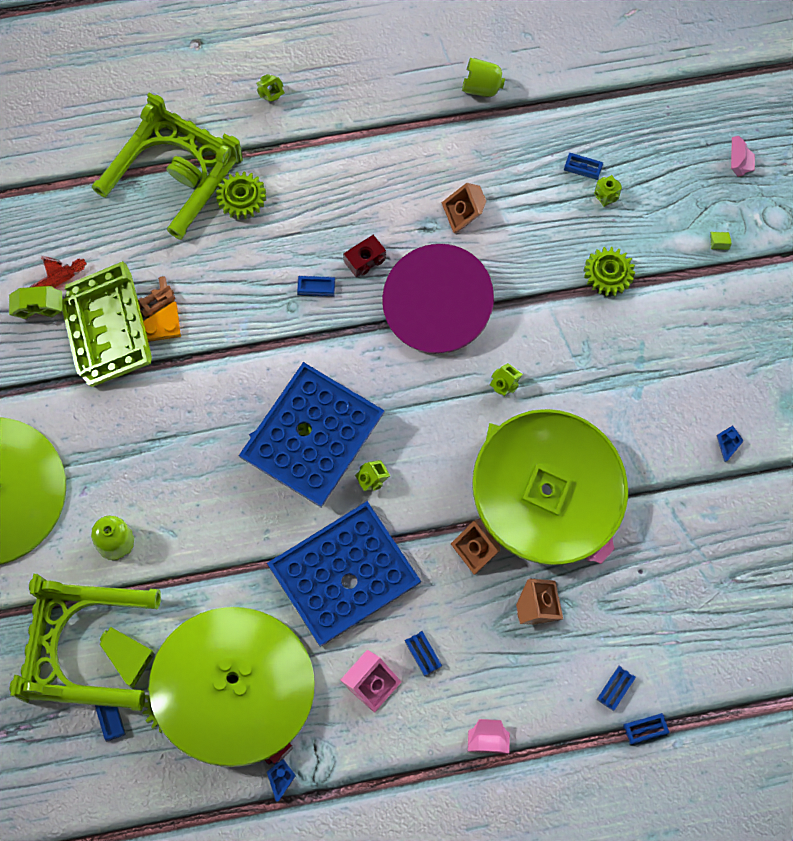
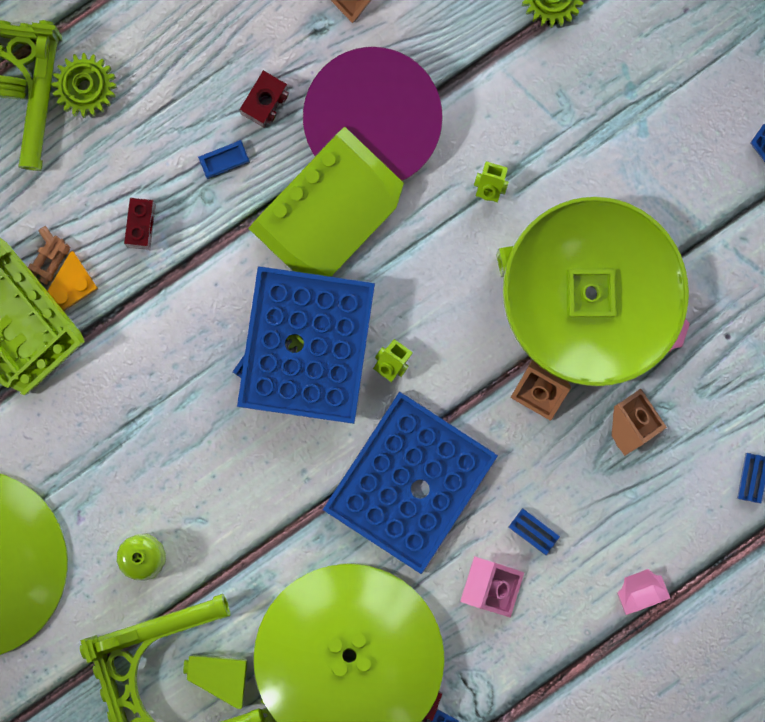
camera: 25 degrees left, 15 degrees up
(233, 302) = (140, 223): none -> dark red brick
(377, 347) = (329, 207): none -> lime slope

